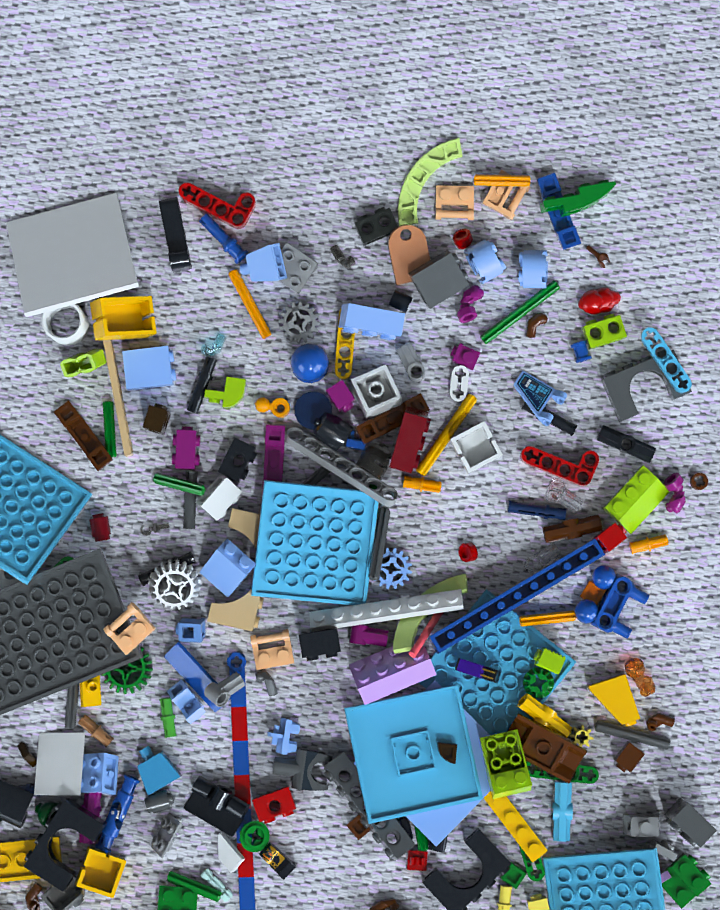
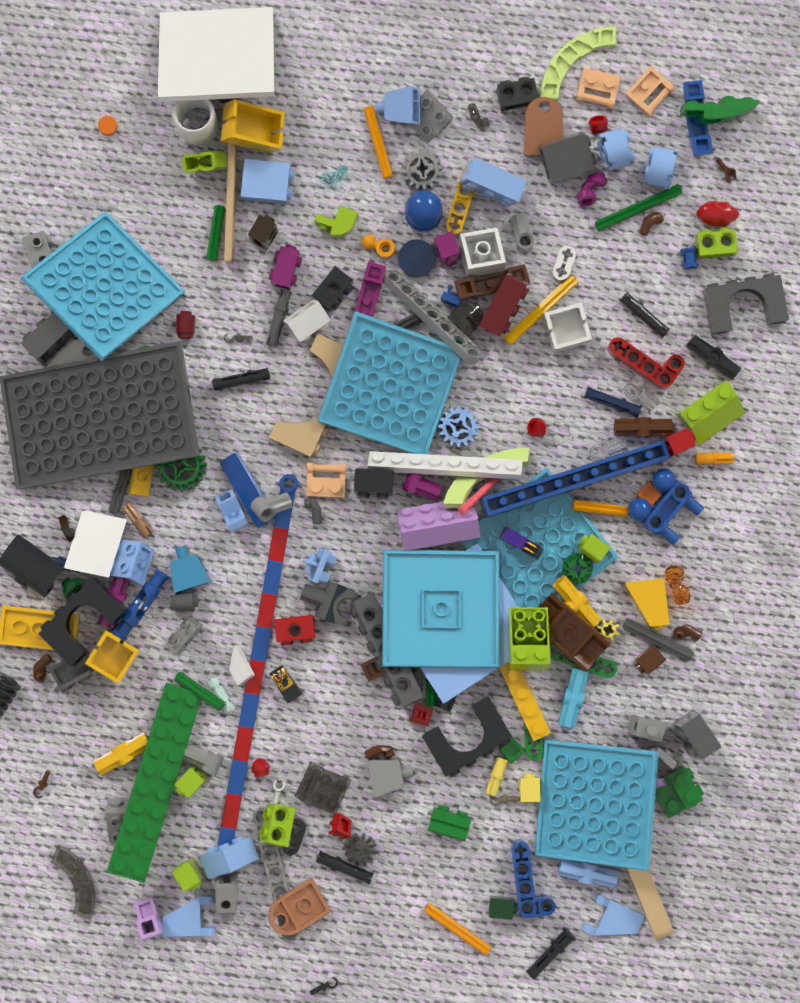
camera: 10 degrees right, 0 degrees up
(83, 435) = (189, 232): reddish brown slope -> none
(134, 633) = (194, 430): light nougat plate -> none
(164, 593) = (252, 392): white gear -> none
(167, 717) = (210, 522): bright green pin -> none
(175, 235) = (320, 59): black beam -> none
(179, 484) = (271, 299): green axle -> none
(187, 635) = (244, 445): medium blue brick -> none
(202, 384) = (315, 208): black pin -> none
(216, 202) = (367, 37): red beam -> none
(216, 806) = (238, 618): black panel -> none
(227, 568) = (300, 389): light blue brick -> none
(229, 244) = (371, 80): blue pin -> none
(257, 844) = (276, 652): green gear -> none
(332, 430) = (430, 280): black helmet -> none
(379, 544) = (452, 399): dark grey axle -> none
(400, 301) = (524, 170): black beam -> none
(422, 484) = (506, 352): light orange axle -> none
(447, 751) = (475, 614): dark brown tile -> none
(465, 356) = (575, 238): magenta bracket -> none
(502, 180) = (649, 75): light orange axle -> none
(537, 395) = (638, 291): flag -> none
(668, 358) = (768, 283): medium azure beam -> none
(674, 484) = (752, 422): magenta arm -> none
(704, 479) = (782, 408): reddish brown bush -> none

